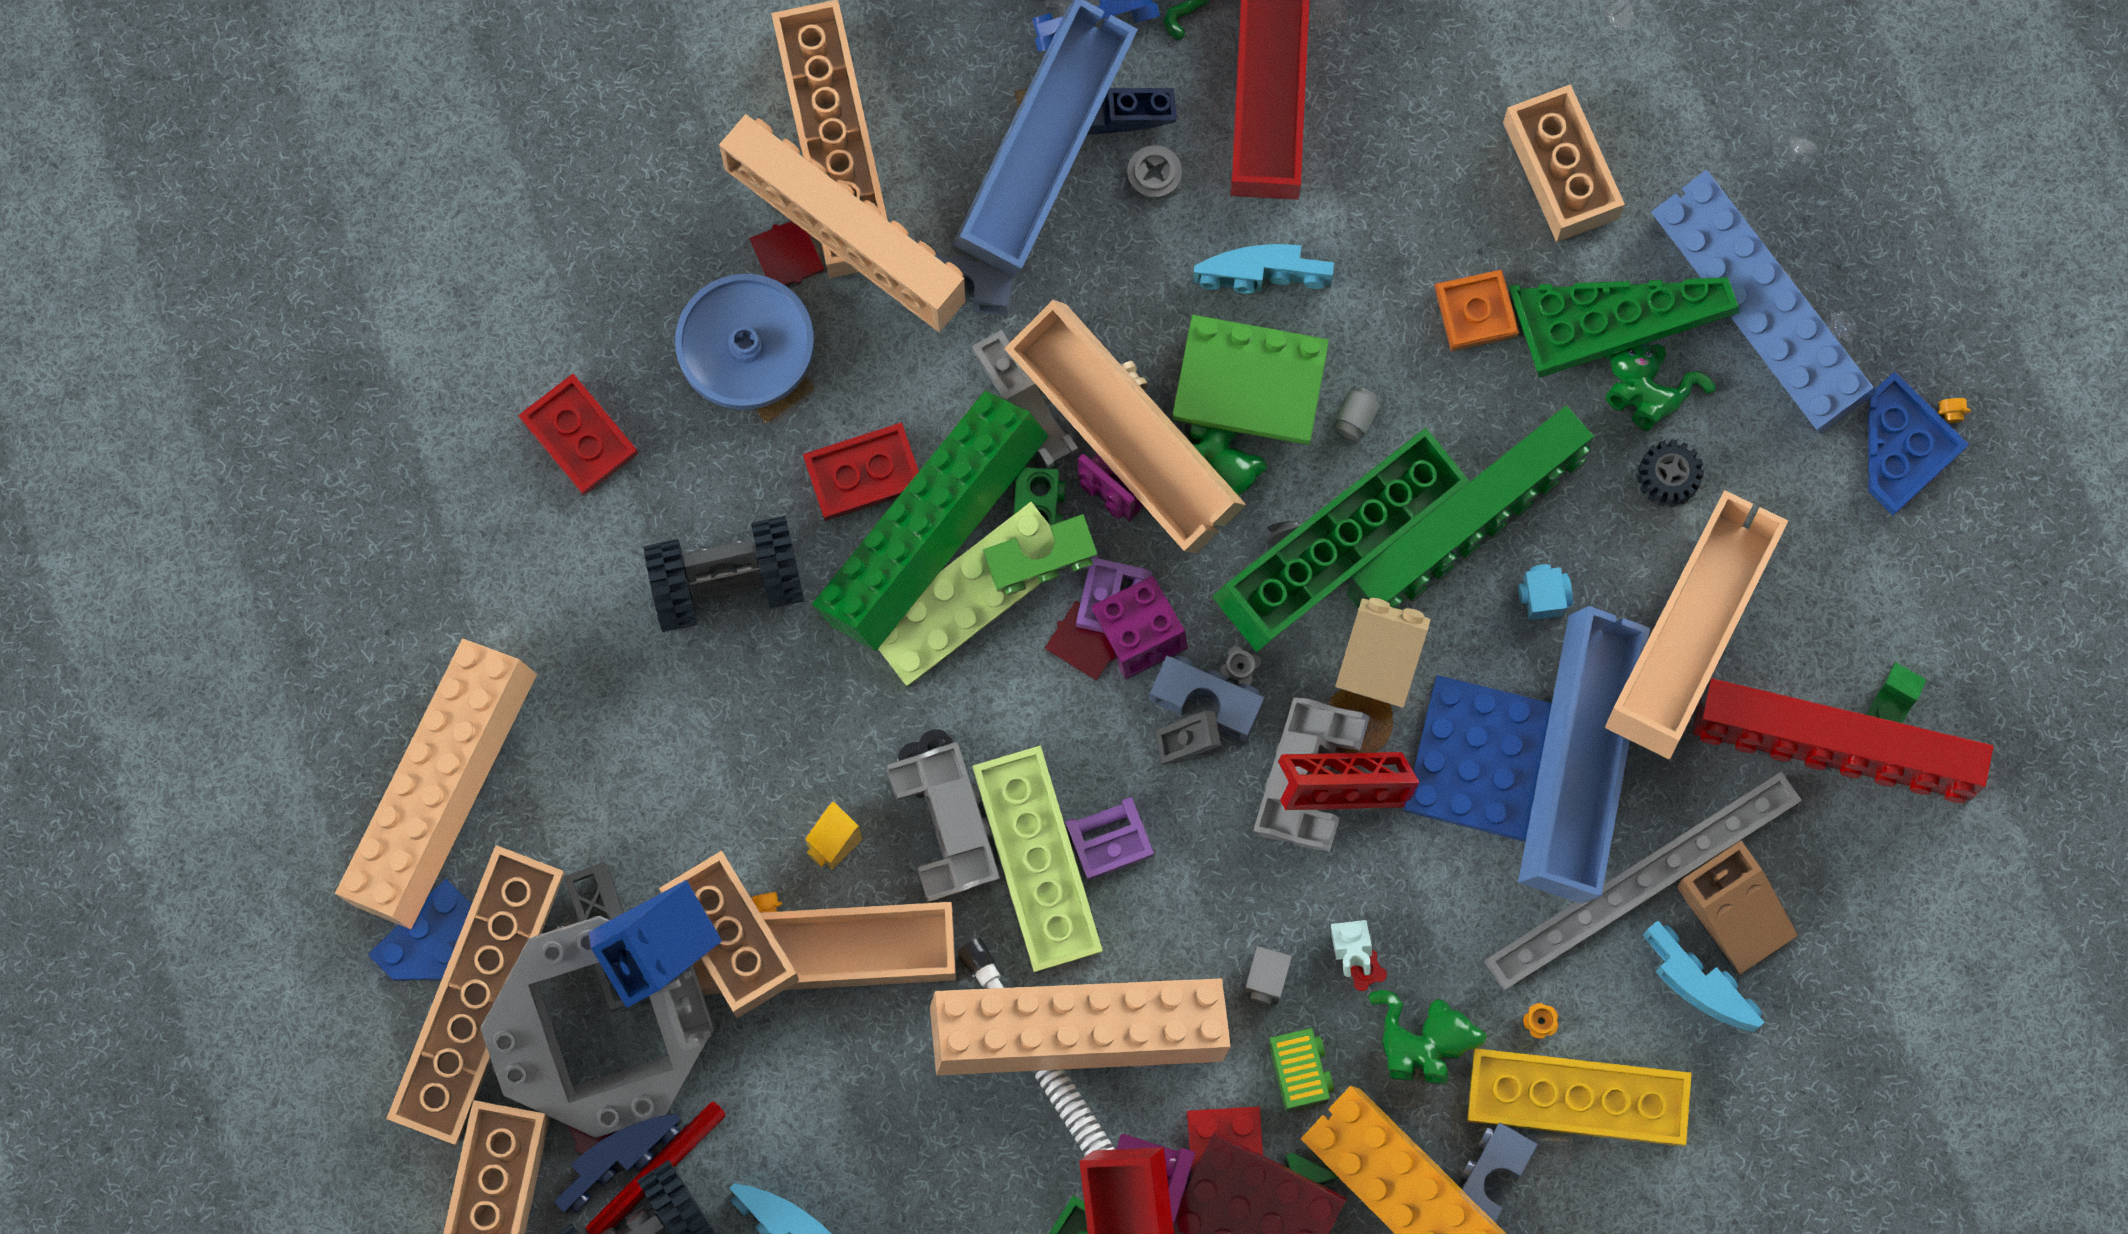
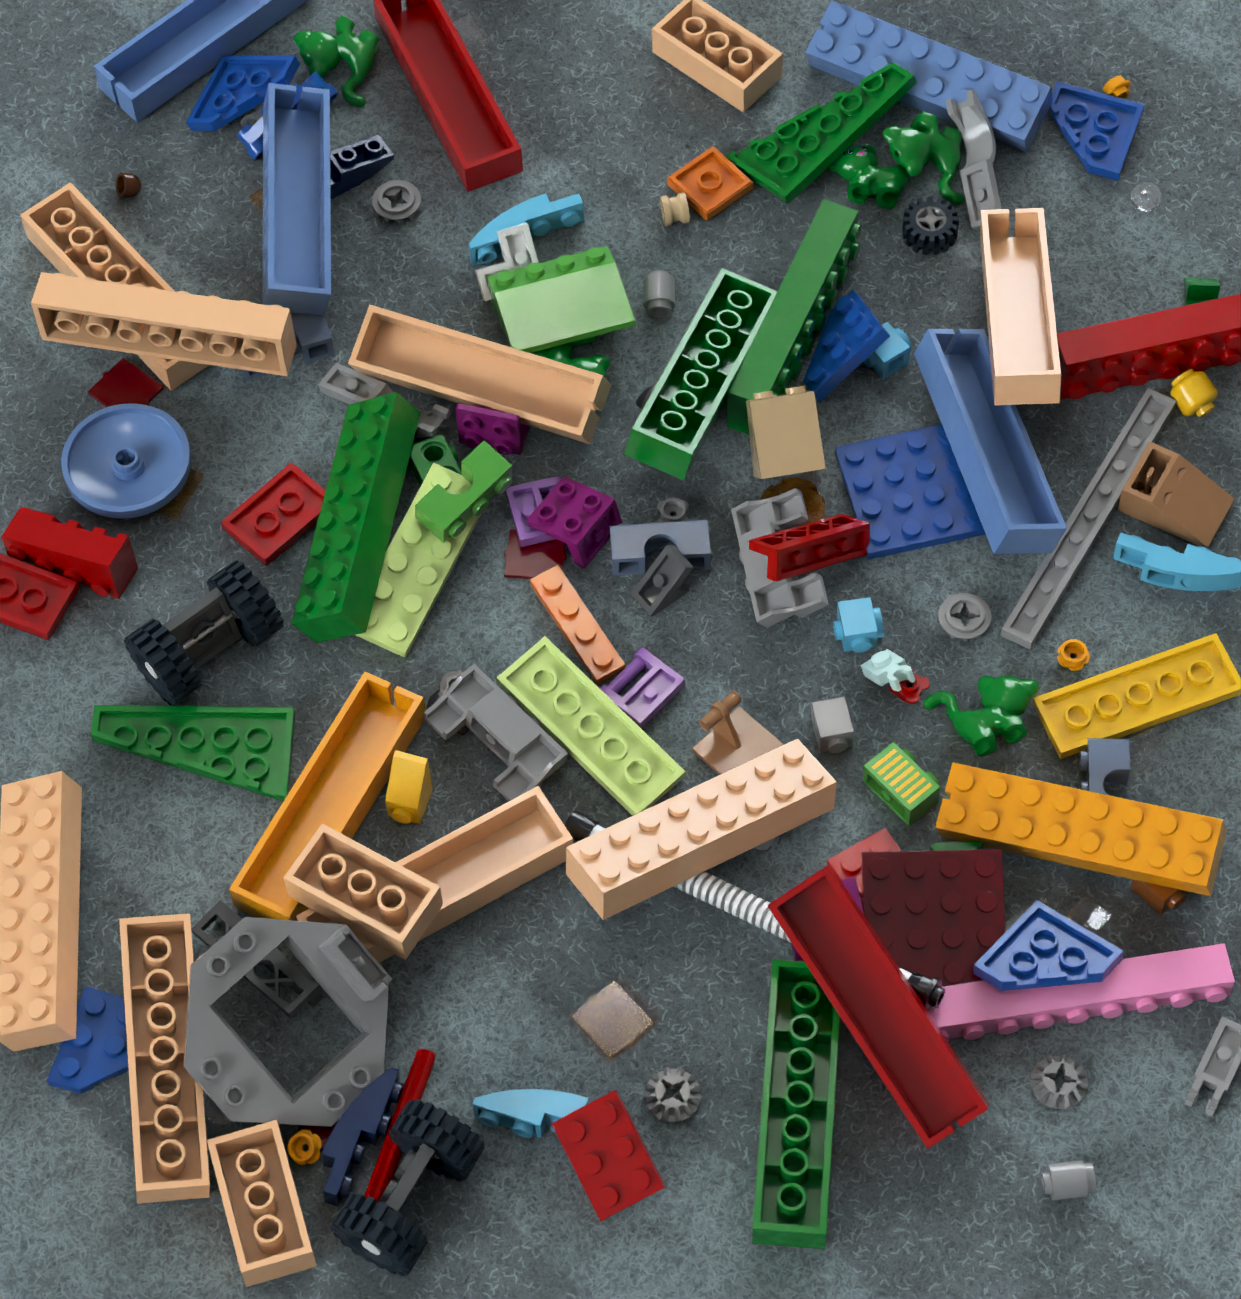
camera: 25 degrees left, 15 degrees down
(555, 1147) = (296, 1150): none -> light orange plate
(645, 413) = (71, 551): none -> red wedge
(653, 942) = (303, 912): blue slope -> none
(690, 692) = (221, 743): none -> green wing
(763, 800) = (331, 790): none -> light orange piece
(899, 19) = (127, 185): none -> reddish brown hinge
(904, 1163) = (612, 1020): none -> clear orange piece
(1085, 739) = (577, 625): none -> orange plate
(1168, 945) = (735, 736): none -> medium nougat plate
(1237, 302) = (517, 253): none -> white plate
(1350, 882) = (858, 625): none -> medium azure brick
(1423, 324) = (674, 209): none -> tan wheel
(1453, 909) = (976, 610): none -> light grey gear
(1507, 570) = (845, 342): none -> blue plate
(1697, 380) = (923, 142): none -> green animal
(1750, 440) = (978, 174): none -> light grey piece
(1824, 801) = (1194, 393): none -> yellow head
(1916, 543) = (1149, 190): none -> clear plate

